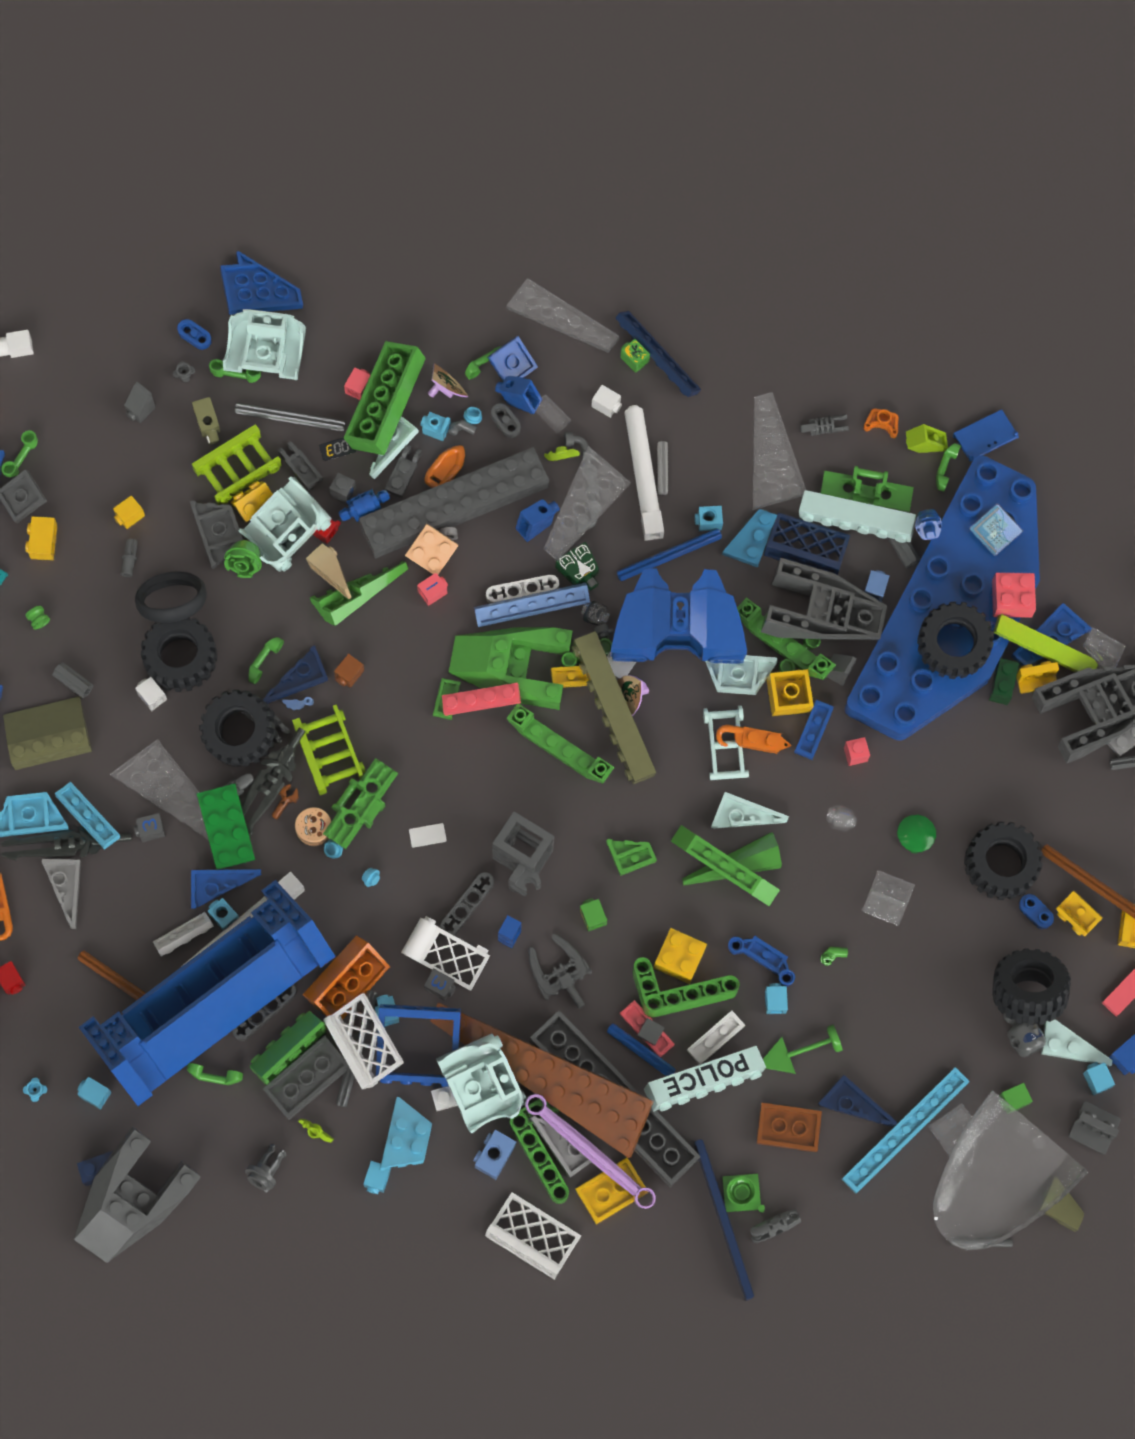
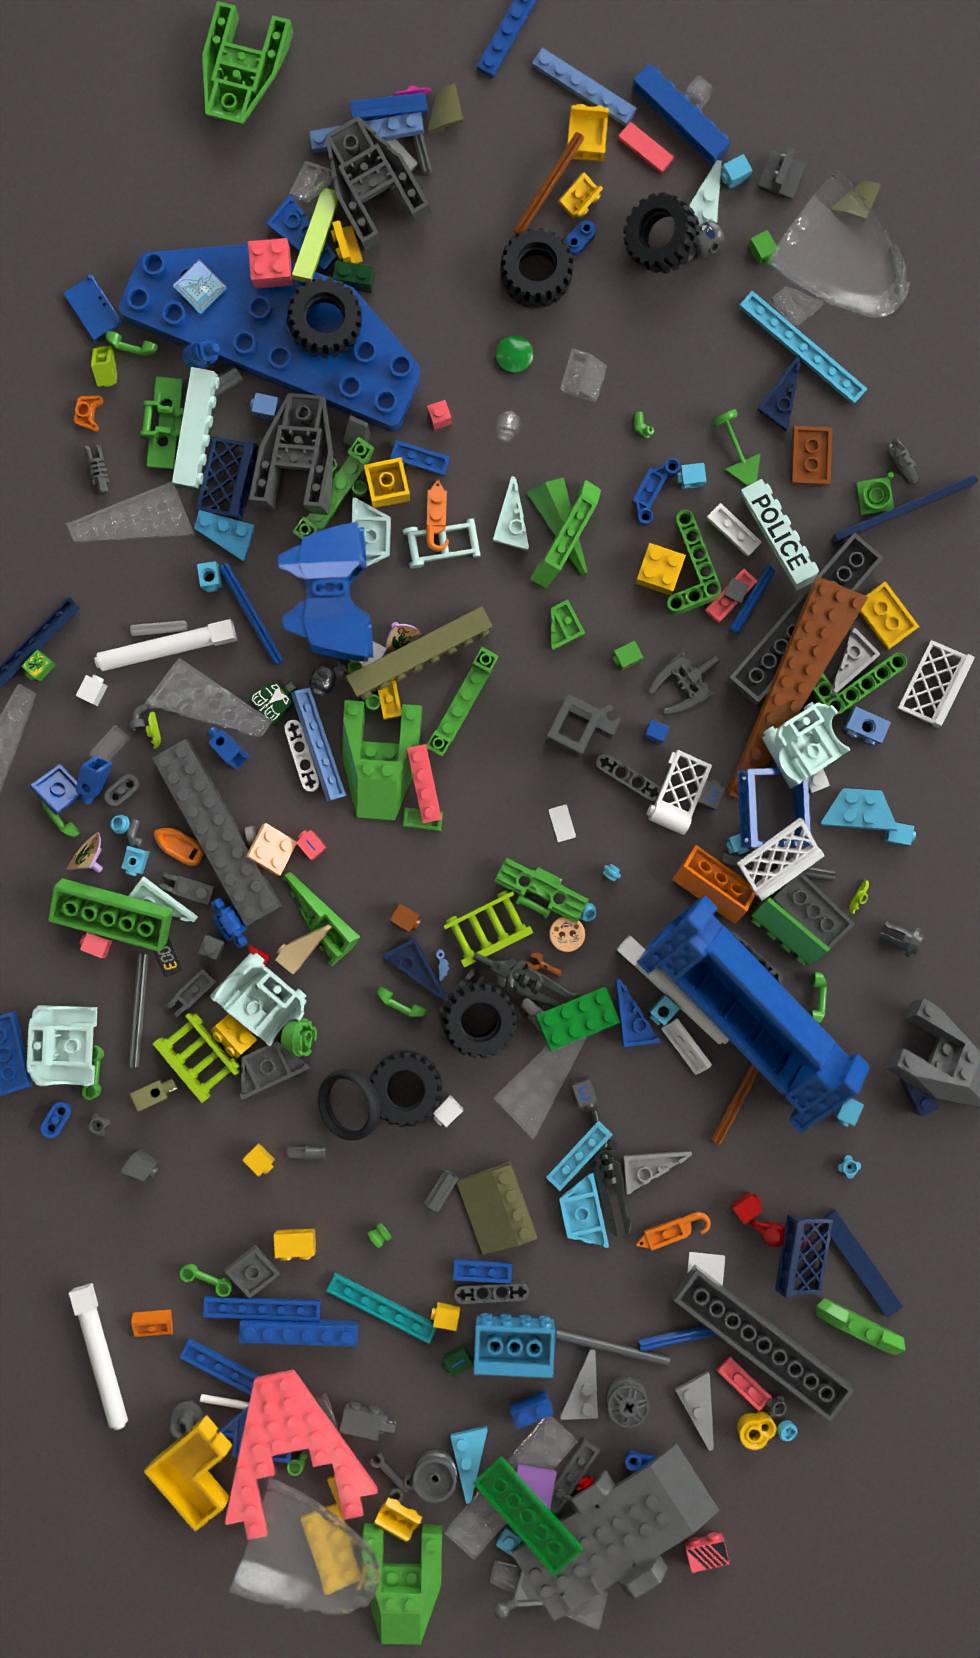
camera: 90 degrees left, 15 degrees up
(590, 1151) = (858, 636): lavender piece -> none

